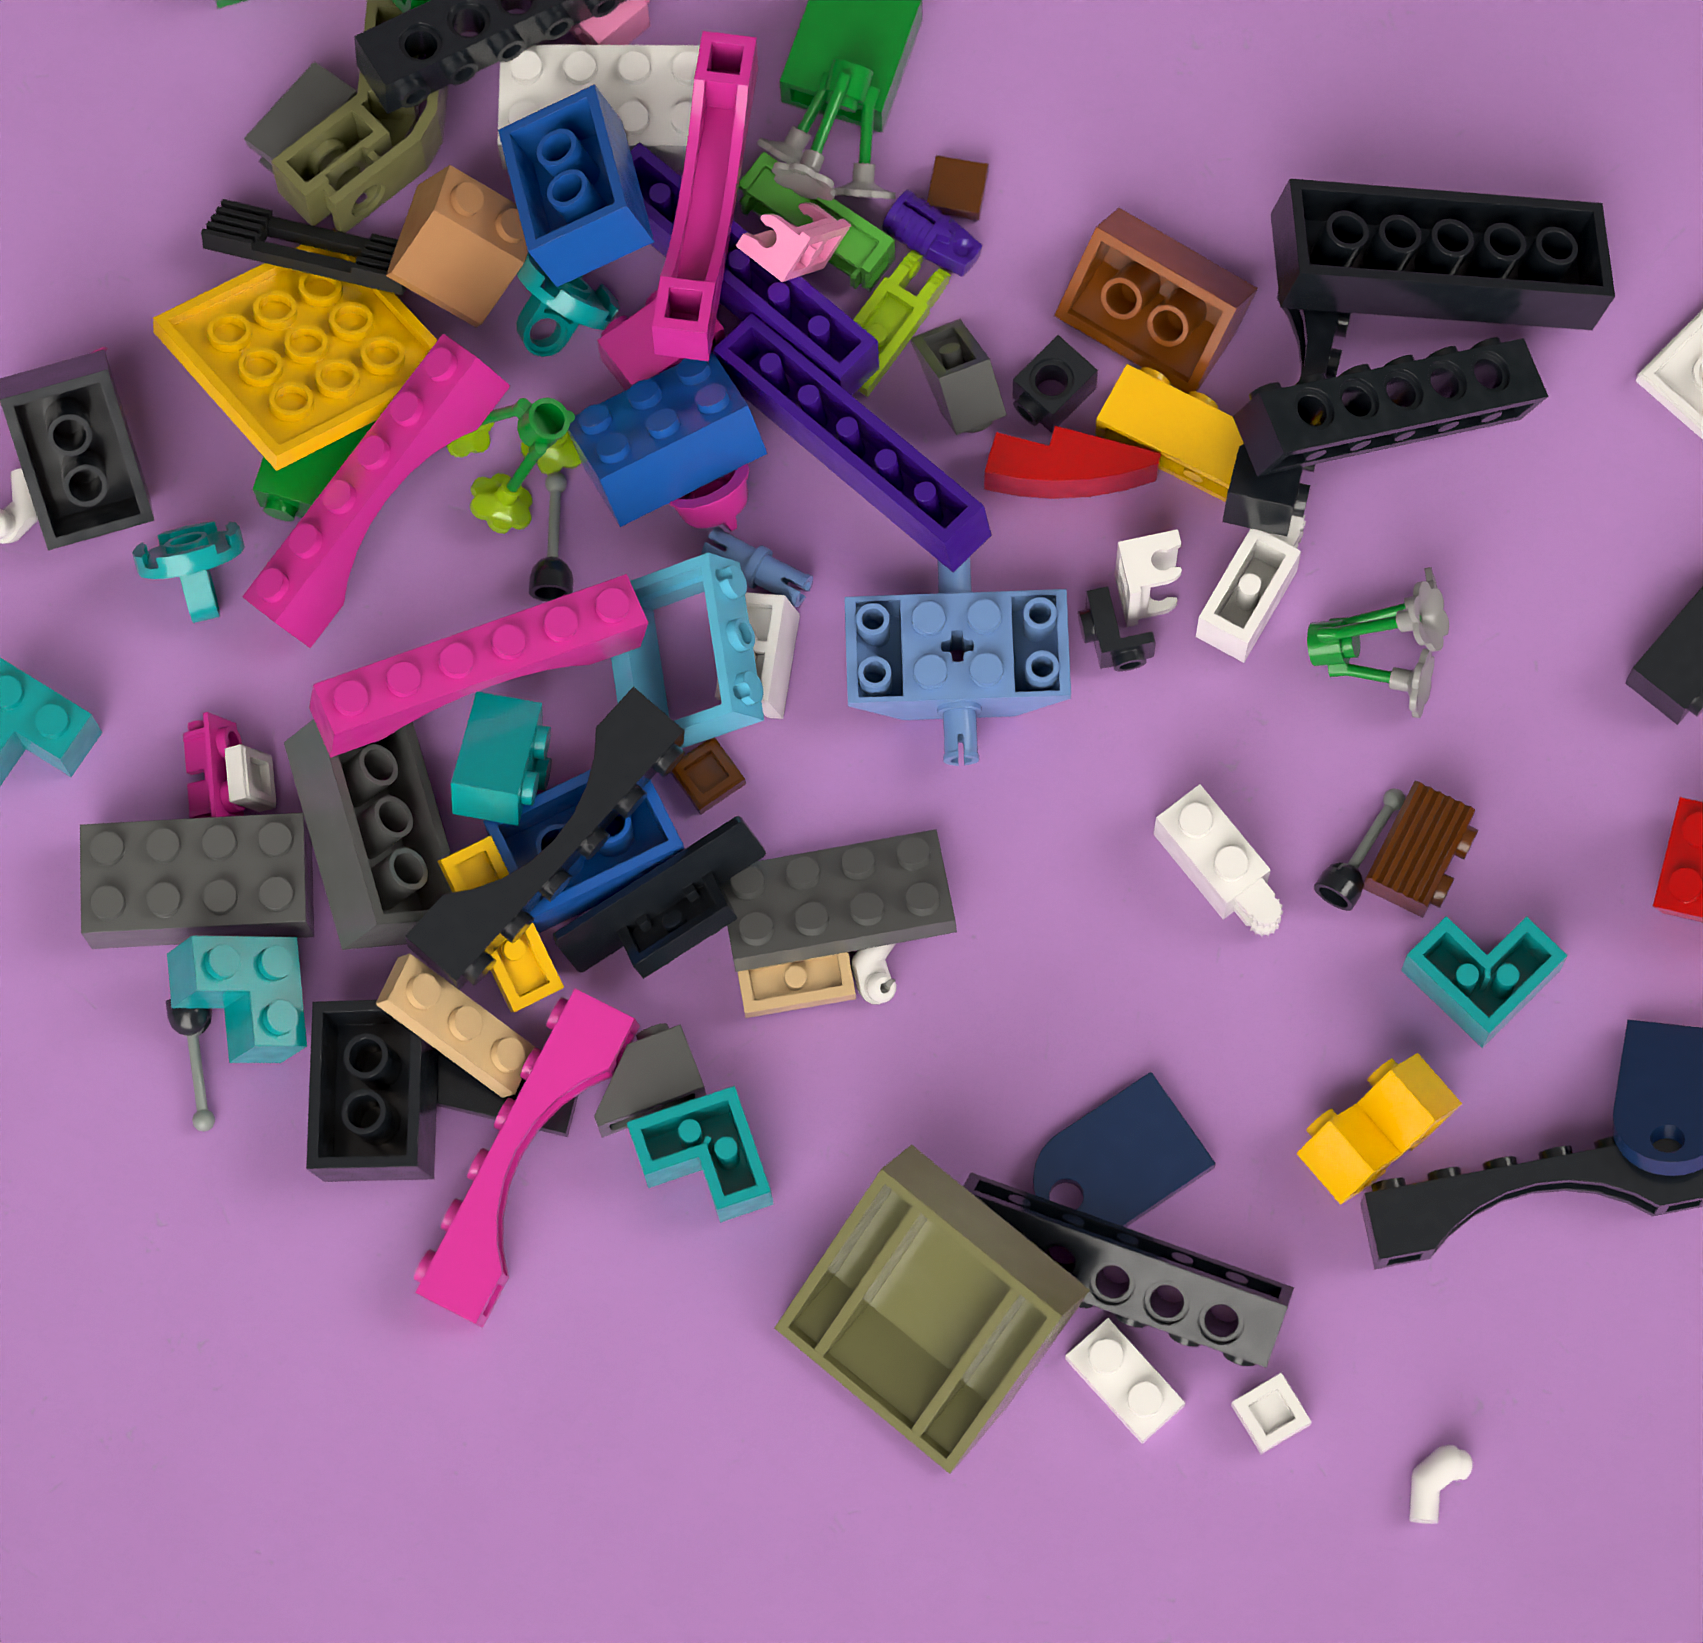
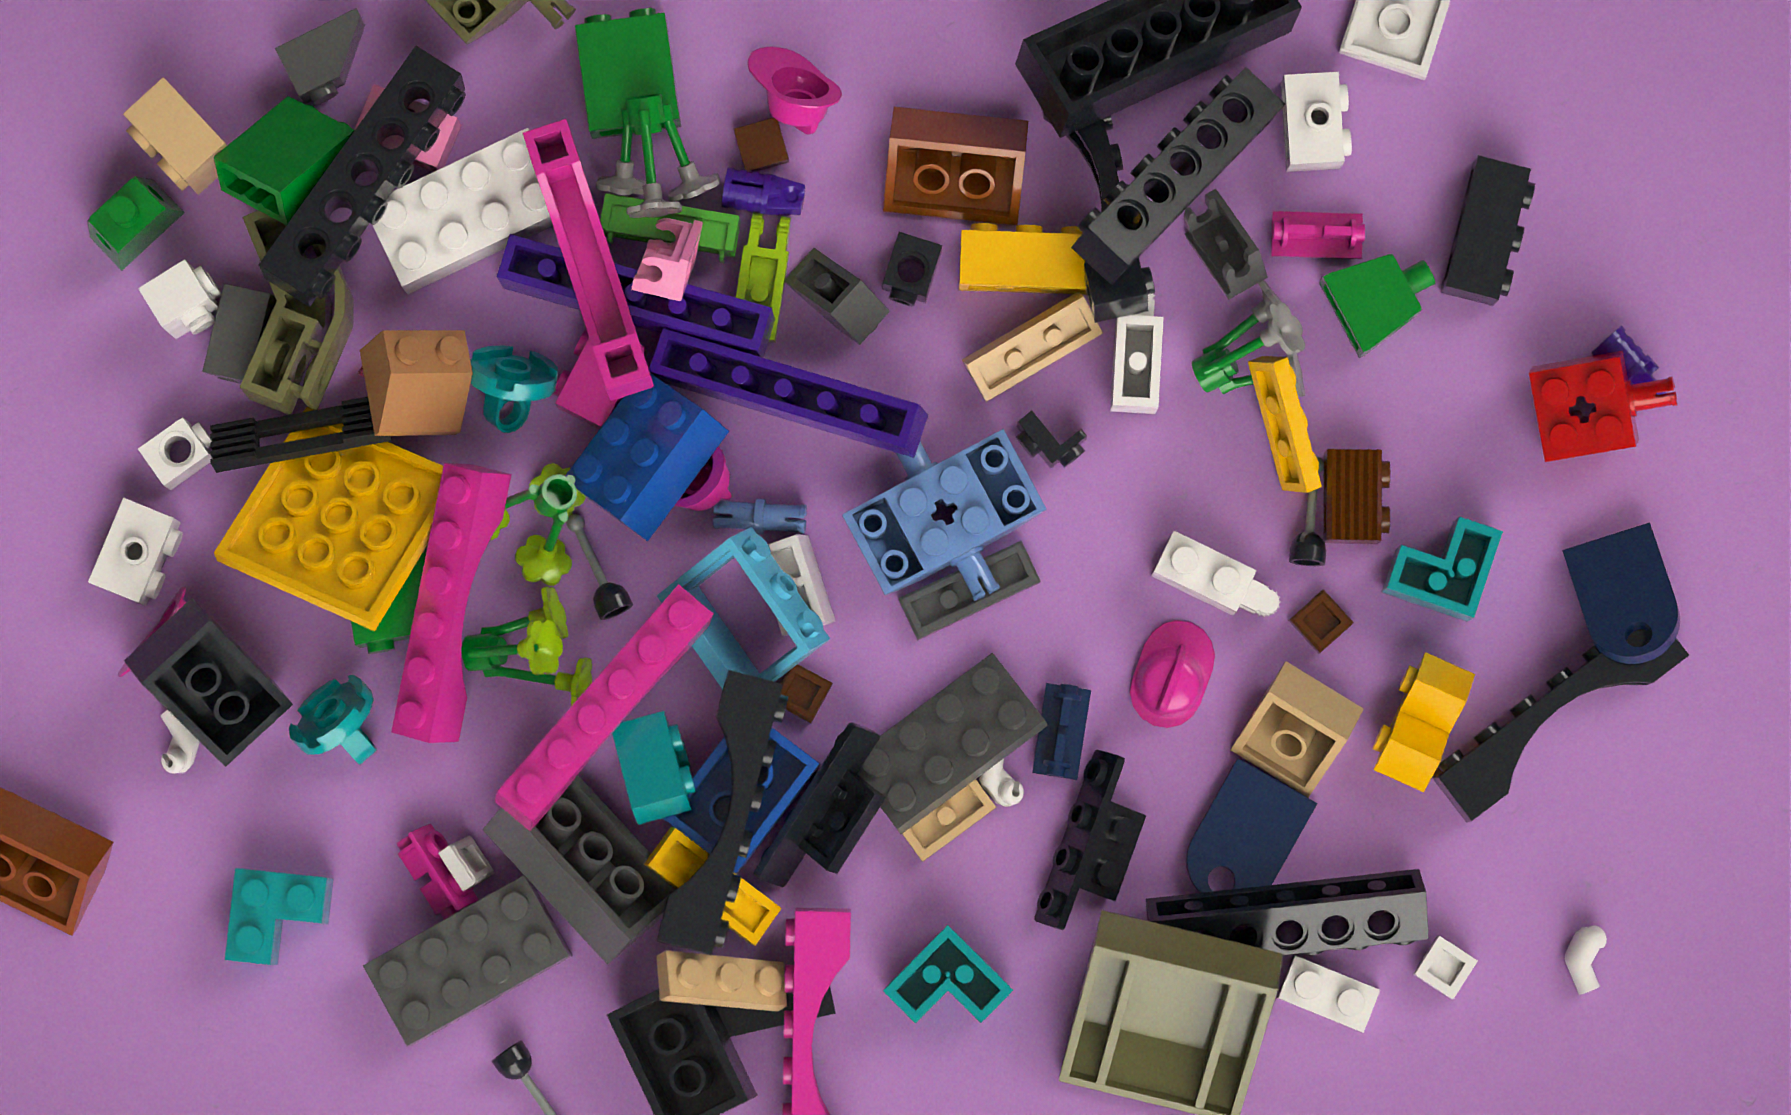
camera: 30 degrees left, 10 degrees up
(75, 292) = (136, 552): none -> white brick
(158, 196) = (157, 452): none -> white brick
(253, 982) = (555, 1020): teal brick -> none
(261, 52) = (182, 299): none -> white brick
(445, 574) = (541, 647): none -> plant
(575, 186) = (485, 299): blue brick -> none
(649, 1078) = (878, 942): dark grey slope -> none
(917, 751) = (951, 600): none -> dark grey tile
(946, 1090) = (1094, 844): none -> black bracket
(972, 951) = (1062, 740): none -> dark blue hinge
(1020, 142) = (794, 86): none -> dark pink piece
(1067, 467) = (953, 327): red slope -> none
(1096, 527) = (1032, 346): none -> tan plate
(1124, 949) = (1172, 674): none -> dark pink piece
(1143, 565) = (1050, 394): white hinge -> none
(1232, 1070) = (1297, 729): none -> tan slope
(1318, 970) = (1321, 621): none -> reddish brown tile
(1381, 731) = (1285, 423): none -> yellow plate
(1407, 515) = (1224, 246): none -> dark grey hinge
(1516, 556) = (1317, 234): none -> dark pink hinge
(1548, 651) = (1375, 298): none -> green torso
(1570, 434) = (1314, 121): none -> white brick

